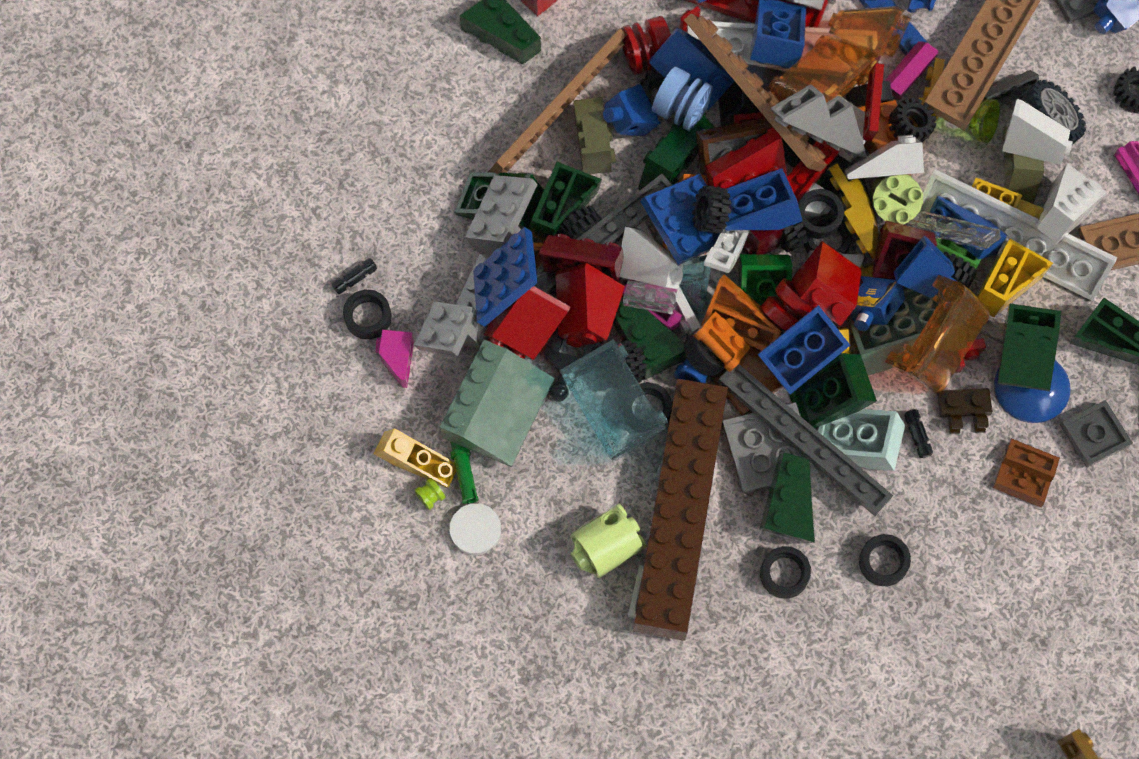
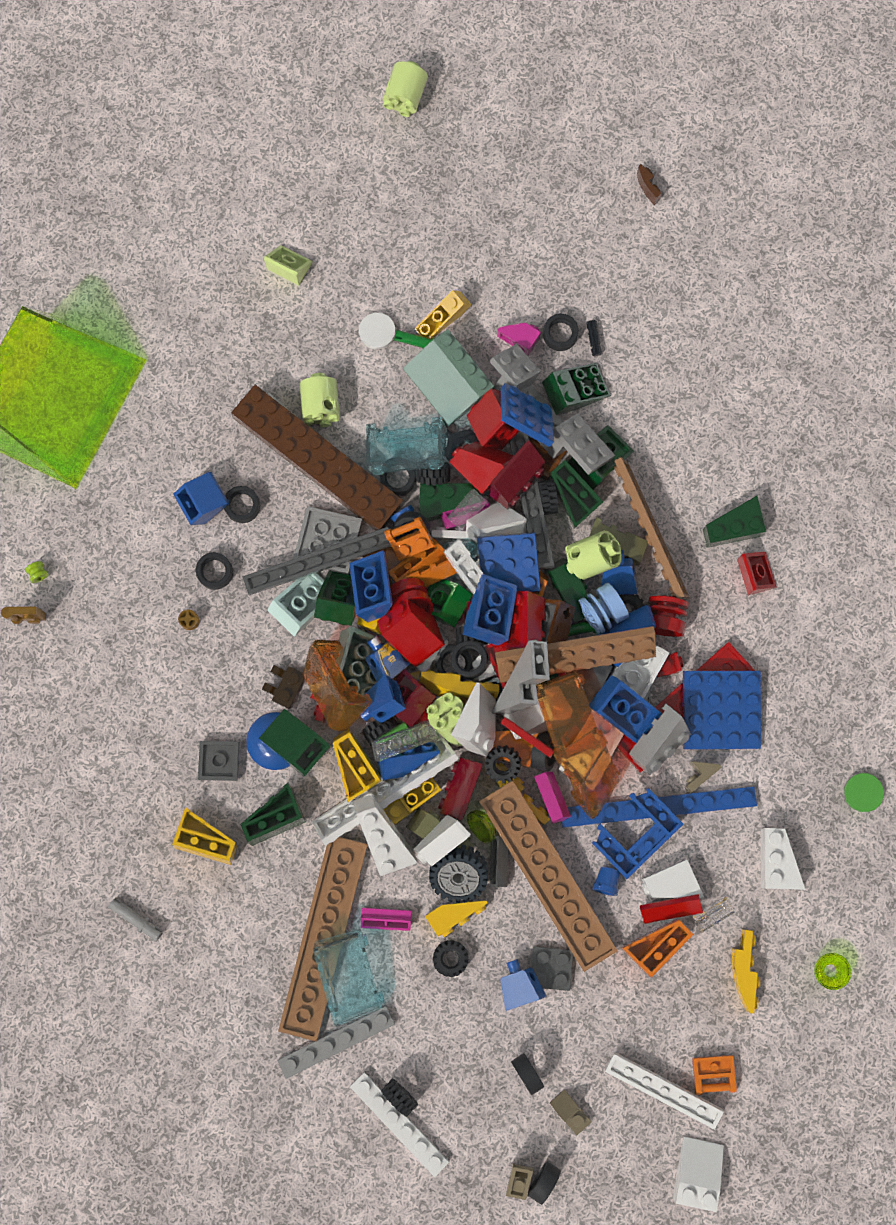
camera: 120 degrees right, 10 degrees up
(119, 310) = (645, 180): none -> reddish brown slope
(124, 658) = (405, 88): none -> yellowish green cylinder
(429, 493) = (414, 312): lime wheel -> none
(430, 265) = (575, 388): none -> dark green slope
(442, 684) = (287, 264): none -> yellowish green slope
(630, 131) = (593, 555): none -> yellowish green cylinder
(711, 209) = (500, 572): black tyre -> none
(789, 500) = (281, 527): dark green wedge -> none
(811, 617) = (201, 499): none -> blue slope
(918, 433) = (283, 643): black axle -> none
(964, 155) = (460, 788): none -> dark red slope
(964, 553) = (186, 617): none -> pearl gold wheel
(1026, 473) = (219, 699): dark orange slope -> none
(1099, 111) = (448, 915): none -> yellow slope

